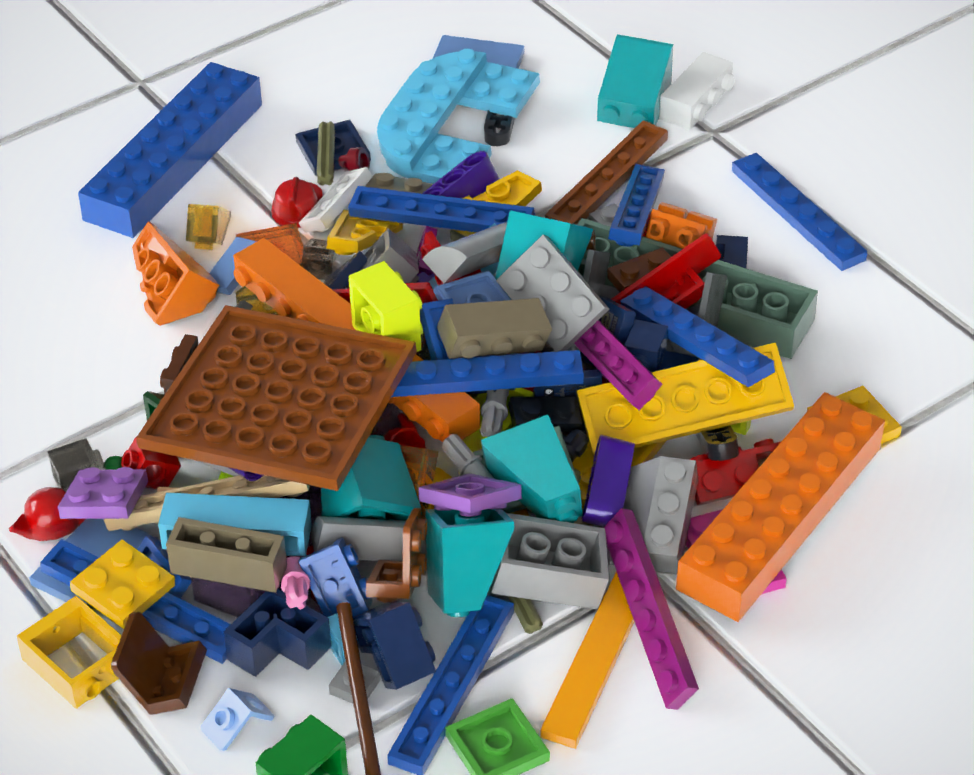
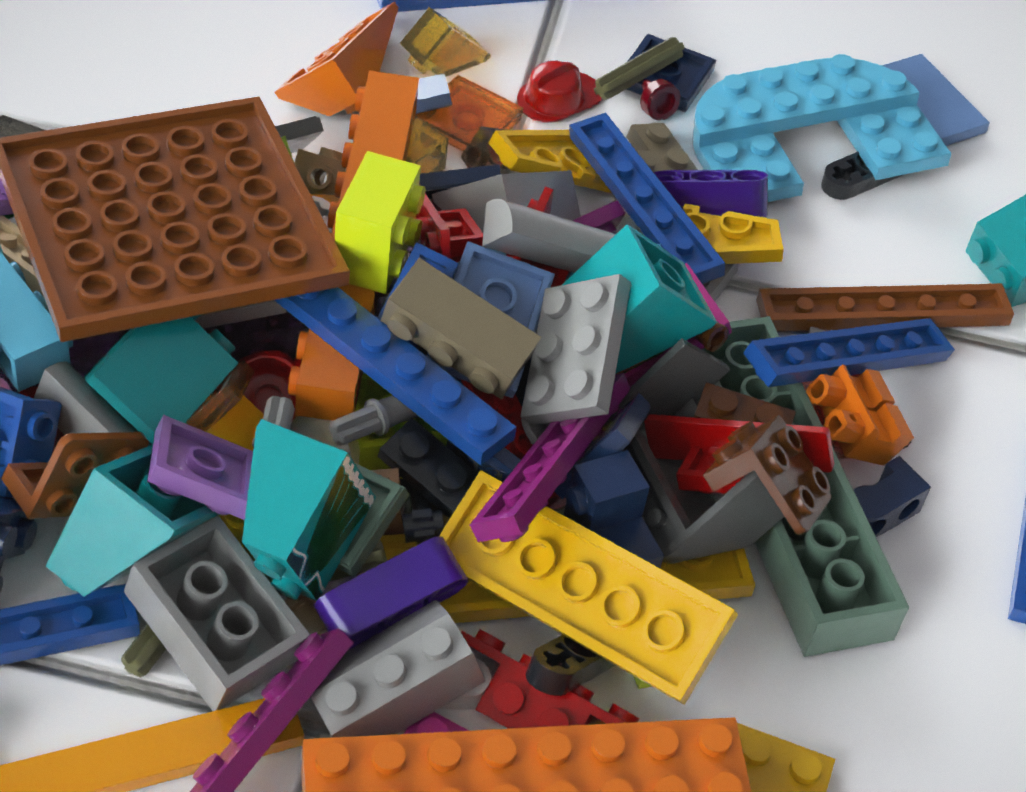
camera: 40 degrees right, 5 degrees up
(336, 200) = (559, 118): white plate -> none
(692, 268) = (782, 466): none -> reddish brown bracket
(701, 337) = (668, 532): blue plate -> none

